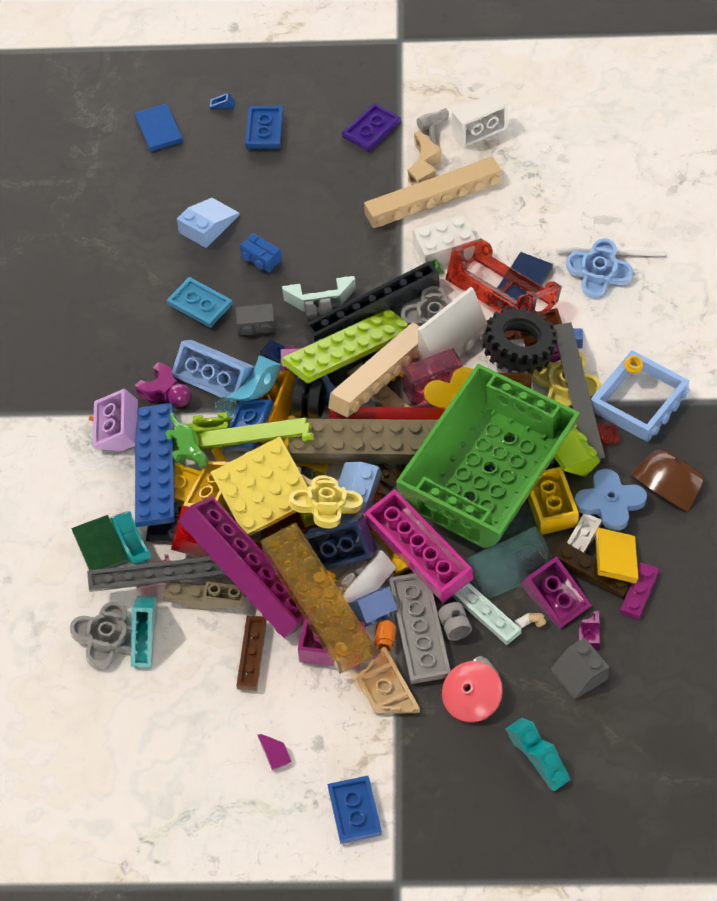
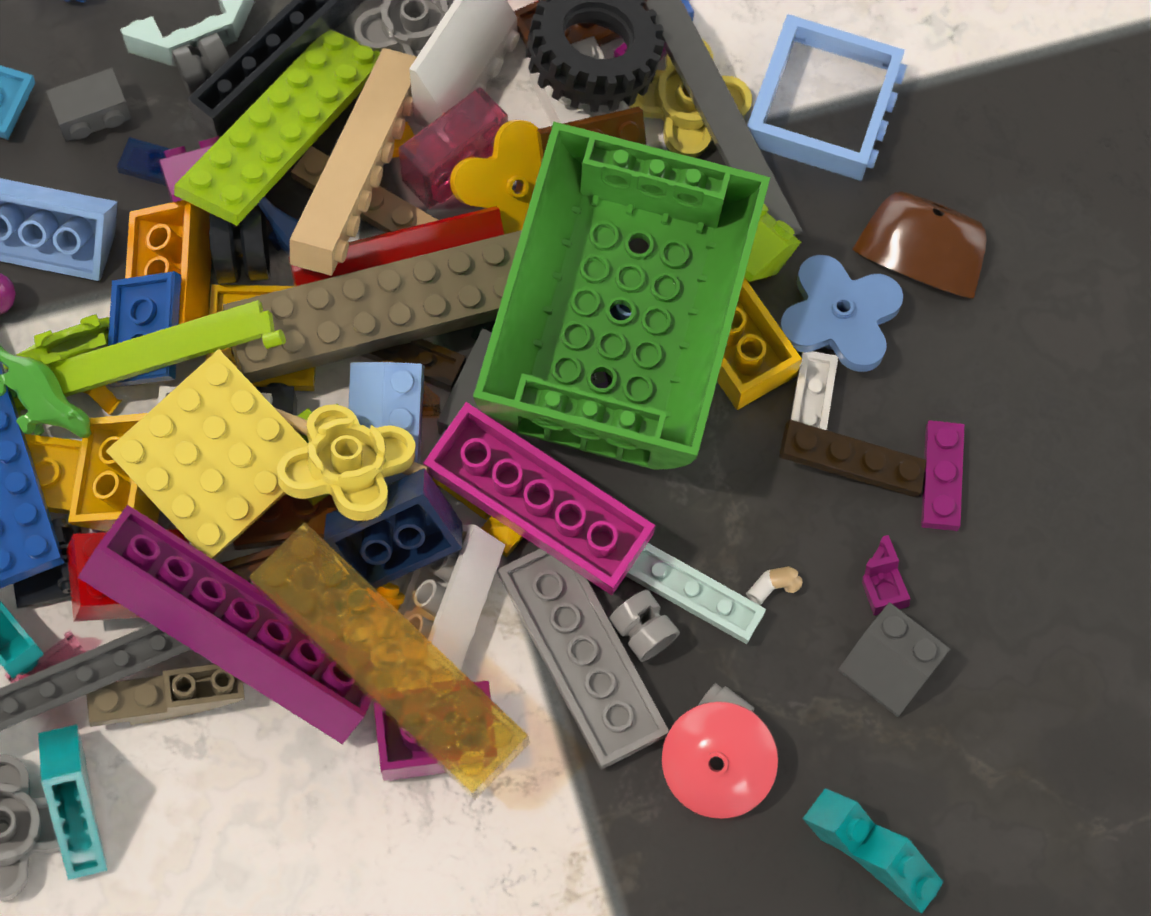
camera: 25 degrees left, 15 degrees up
(226, 405) = (88, 292): clear light blue tile -> none
(251, 653) = (290, 789): reddish brown plate -> none
(258, 382) = (136, 236): medium azure piece -> none
(373, 606) = (489, 639): brick -> none
(385, 635) = (526, 687): orange brick -> none
(386, 687) = (560, 791): tan wing -> none
(508, 562) = (701, 496): clear light blue slope -> none
(555, 592) = (801, 518): magenta slope -> none
(608, 433) = (794, 181): clear red tile -> none
(616, 555) = (887, 421): yellow tile -> none
(633, 360) = (806, 36): yellow plate -> none

